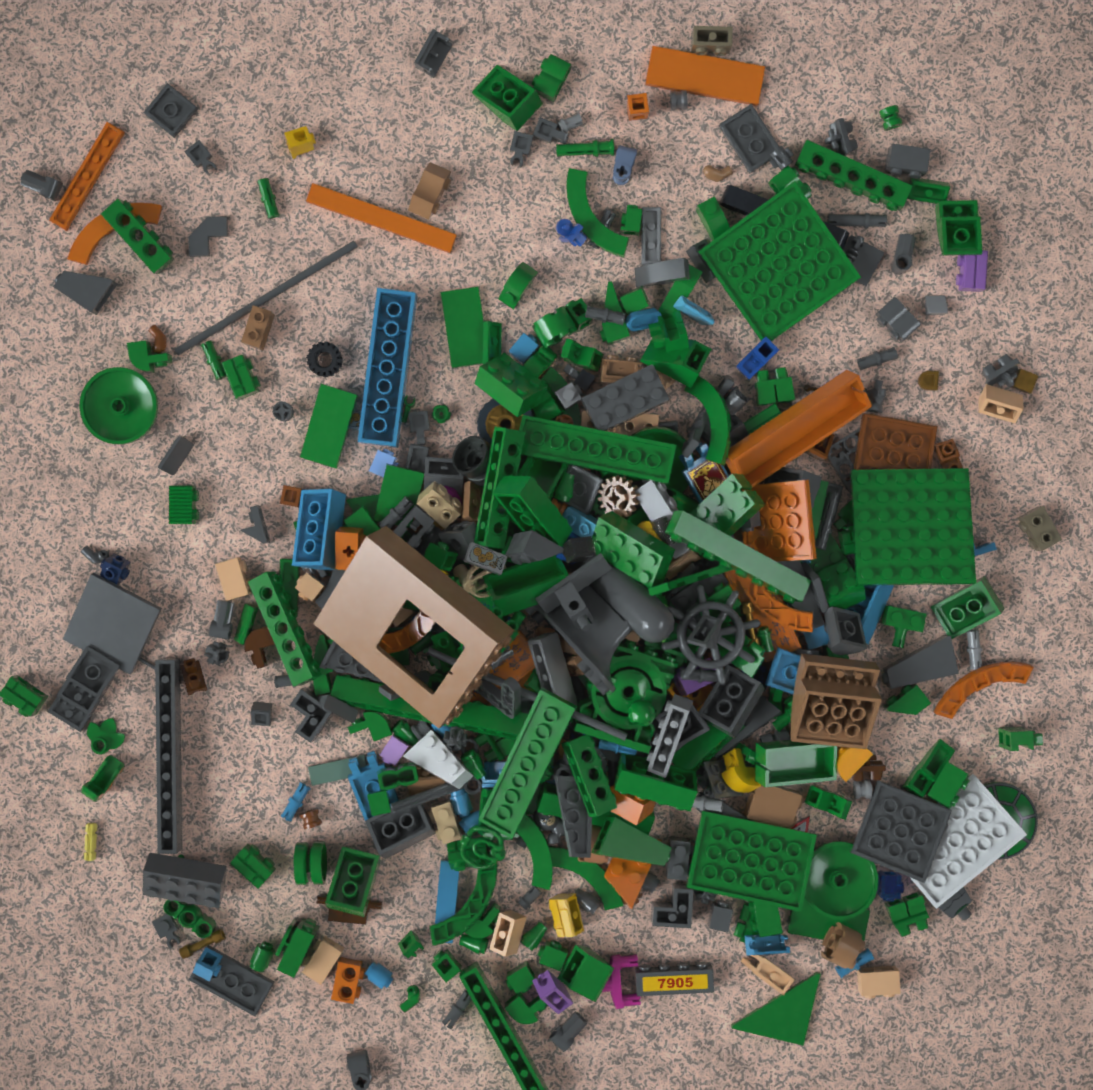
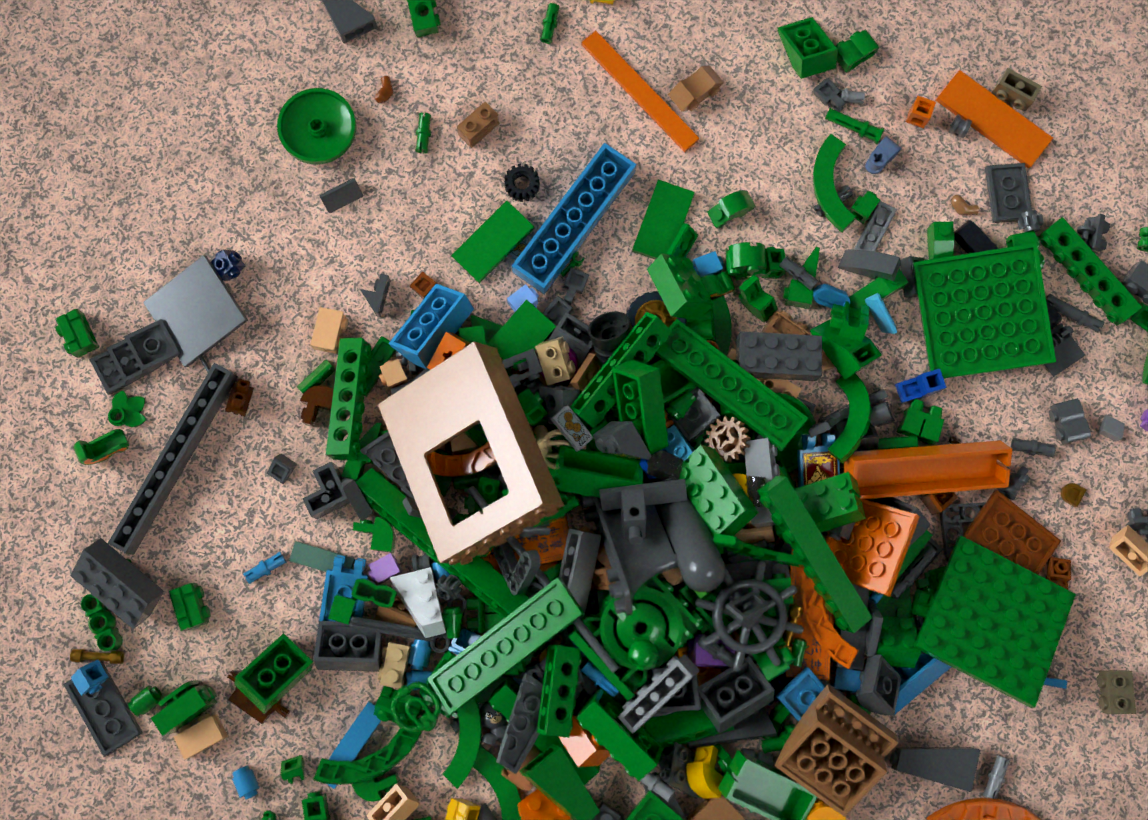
camera: 25 degrees right, 10 degrees down
(90, 842) = (54, 500): light yellow axle -> none
(94, 557) = (214, 243): dark grey arm -> none
(142, 358) = (362, 97): green brick -> none
(166, 926) = (73, 620): dark grey plate -> none
(183, 504) = (322, 241): green brick -> none
(200, 236) = (484, 22): dark grey tile -> none
(216, 653) = (273, 389): dark grey gear -> none
(221, 625) = (293, 366): dark grey piece -> none
(241, 377) = (438, 158): green brick -> none
(266, 297) = (500, 104): dark grey piece -> none
(280, 409) = (456, 204): dark grey wheel -> none
(282, 681) = (319, 448): dark grey pin -> none
(310, 818) = (269, 591): dark orange wheel -> none
(310, 863) = (244, 633): green wheel -> none
(344, 979) = (209, 767): orange brick -> none
(396, 513) = (511, 349): dark grey pin -> none
(403, 731) = (403, 557): green cone -> none
(436, 413) = (600, 280): green plate -> none
(477, 945) = (356, 805): green cone -> none
(520, 145) = (798, 93): dark grey plate -> none
(532, 894) = (433, 786): dark grey pin -> none
(569, 395) = (727, 328): light grey brick -> none
(570, 232) = (804, 188): blue hips -> none
(582, 379) = (746, 322): black piece -> none
(634, 300) = (831, 275): green brick -> none
(902, 621) = (939, 710): green brick -> none
(903, 252) = (1103, 364): dark grey piece -> none
(909, 701) = (908, 794): green slope -> none
(968, 608) = (1009, 732): green slope -> none

